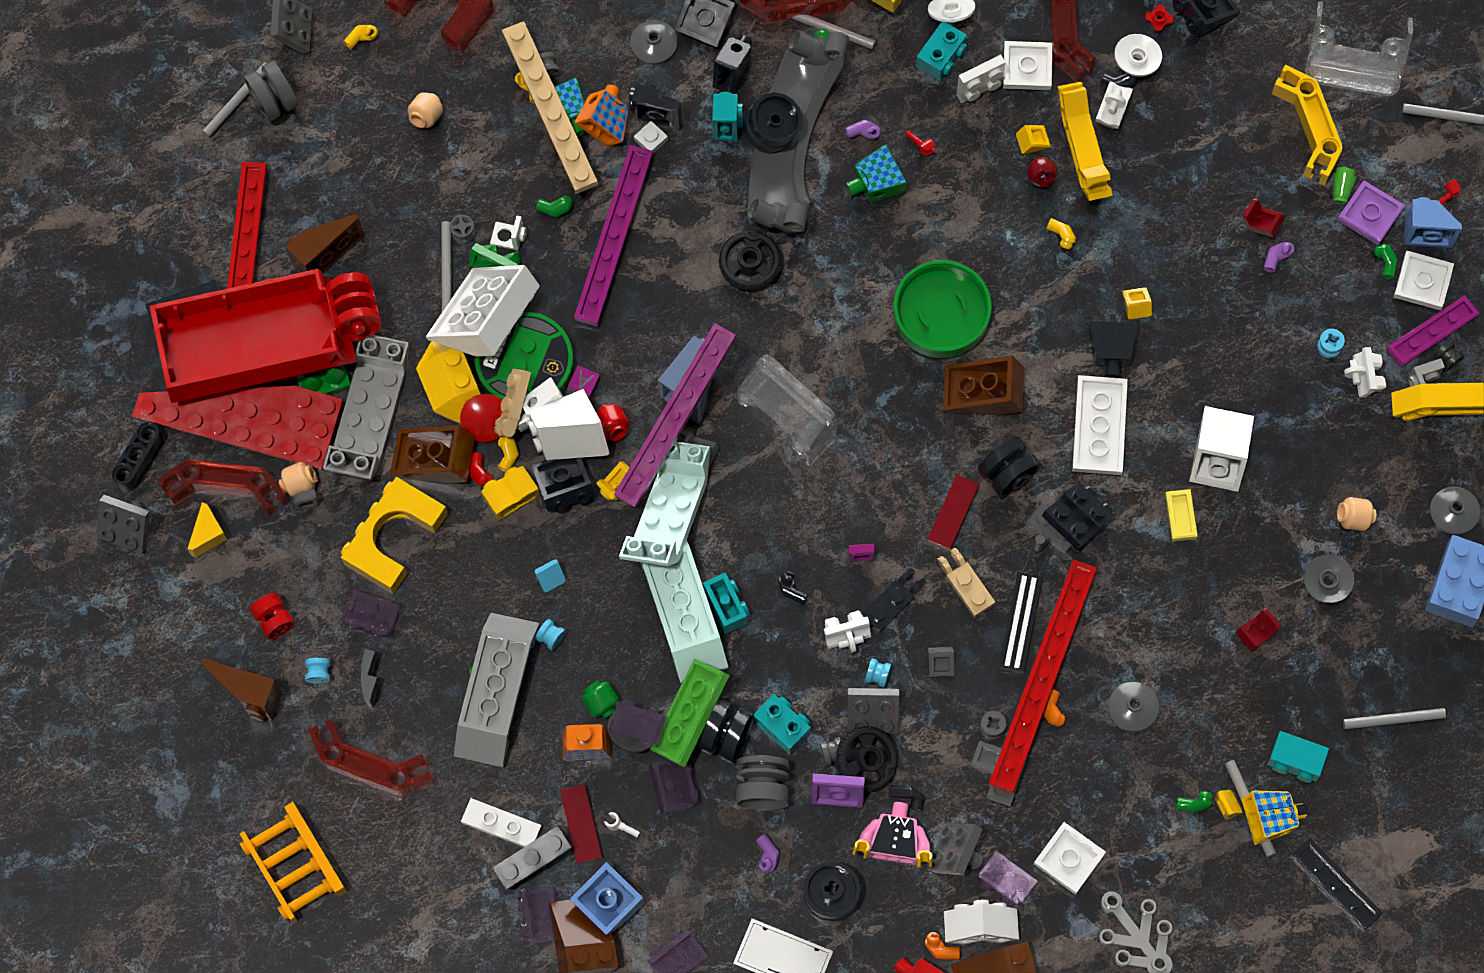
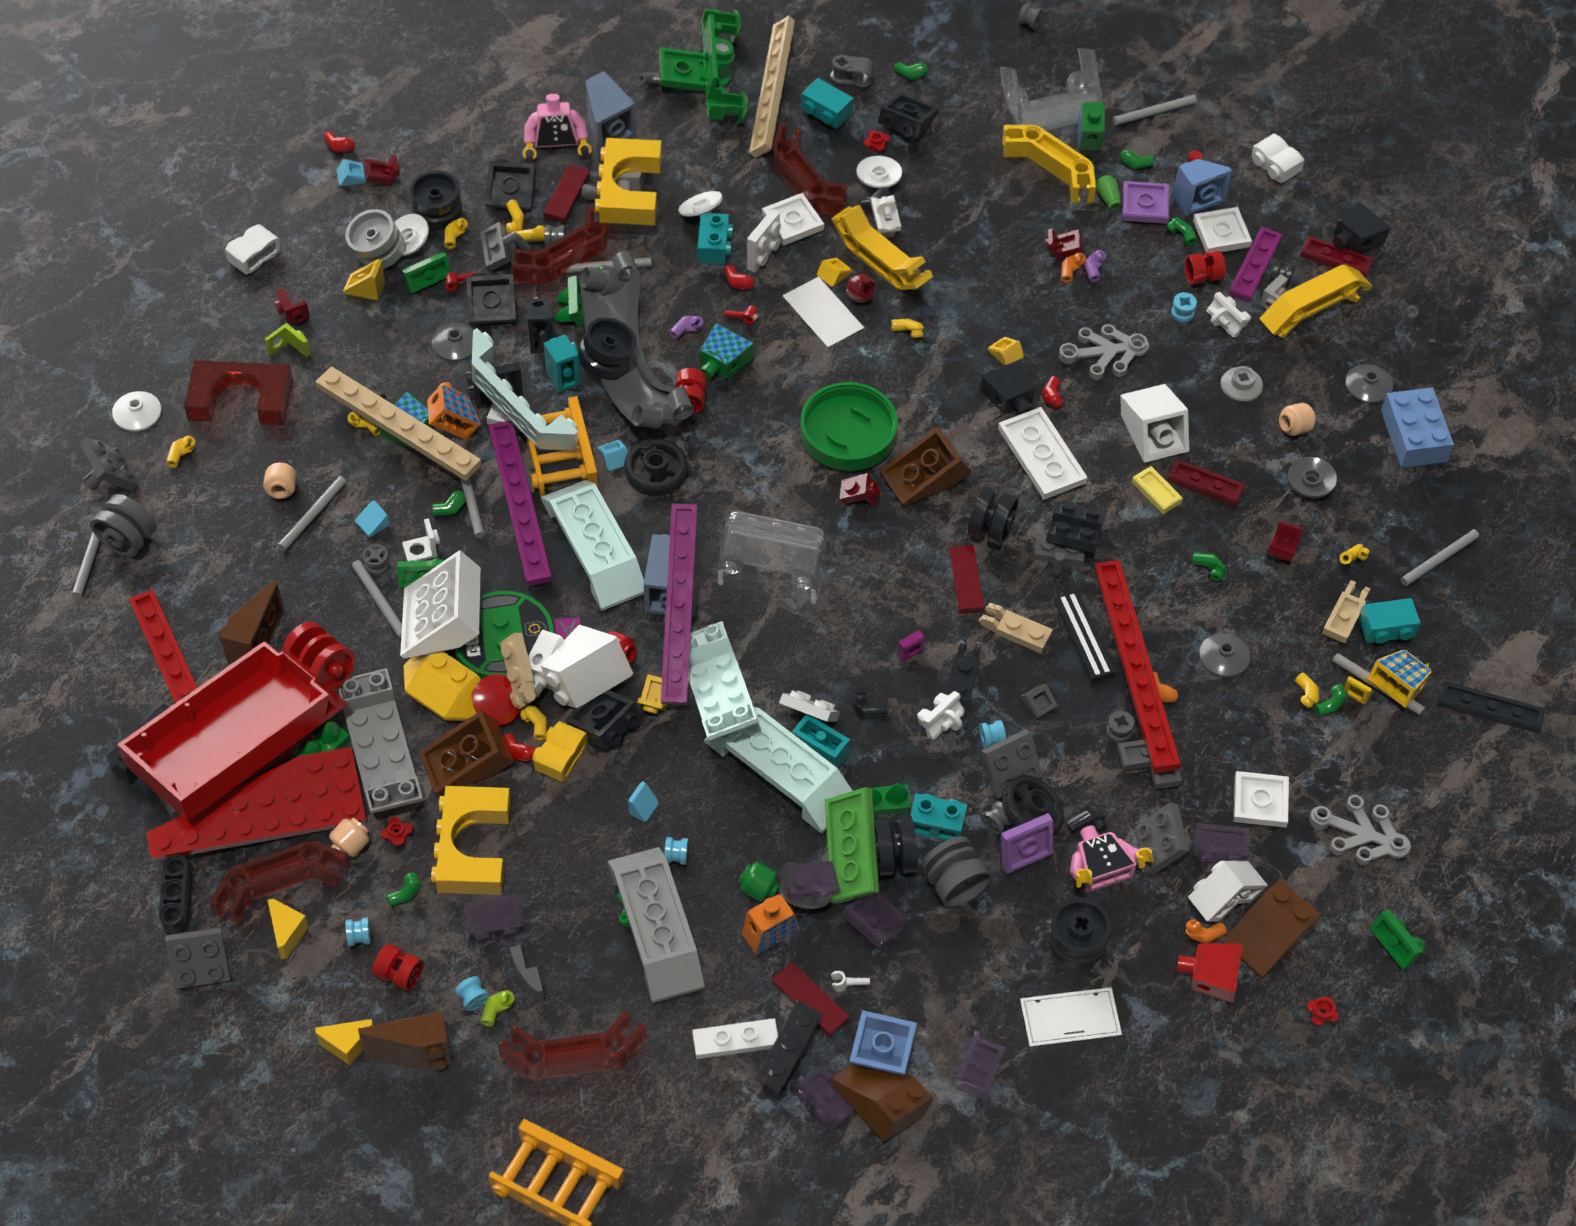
camera: 35 degrees left, 15 degrees down
(196, 651) = (342, 1039): none -> yellow slope
(259, 567) = (358, 932): none -> medium azure wheel
(305, 499) = (367, 851): dark grey tile -> none
(316, 552) = (407, 892): none -> green arm
(331, 689) = (495, 1005): none -> lime arm
(338, 500) = (399, 837): none -> red plate
(436, 154) = (312, 513): none -> light grey bar
(481, 187) = (372, 519): none -> medium azure slope
(573, 218) = (472, 508): none -> light grey bar
(643, 85) = (558, 435): none -> light aqua slope
(651, 308) = (597, 543): none -> light aqua slope
(695, 213) = (582, 452): none -> light orange fence
(722, 227) = (613, 454): none -> medium azure slope
(736, 566) = (819, 709): none -> white plate
(750, 681) = (891, 799): none -> green tile
(770, 64) = (571, 296): none -> green tile
(770, 854) = (1000, 934): medium lavender arm -> none
(825, 198) = (695, 384): none -> red wheel
(913, 377) = (858, 489): none -> dark red bracket
(937, 105) = (738, 281): none -> red arm
(997, 176) = (823, 311): none -> white sticker
(1147, 368) = (1051, 394): none -> red arm
(1180, 613) = (1215, 565): none -> green arm
(1184, 783) = (1311, 690): none -> yellow arm
(1231, 350) = (1133, 346): none -> light grey plant
(1231, 531) = (1206, 483): none -> dark red tile
(1255, 244) = (1070, 265): none -> orange arm
(1267, 726) = (1345, 613): none -> tan hinge
(1311, 673) = (1353, 553): none -> yellow arm
(1334, 458) = (1241, 390): none -> light grey piece
(1368, 106) = (1091, 121): none -> green torso
(1368, 311) = (1209, 267): none -> red wheel
(1391, 161) = (1134, 161): none -> green arm

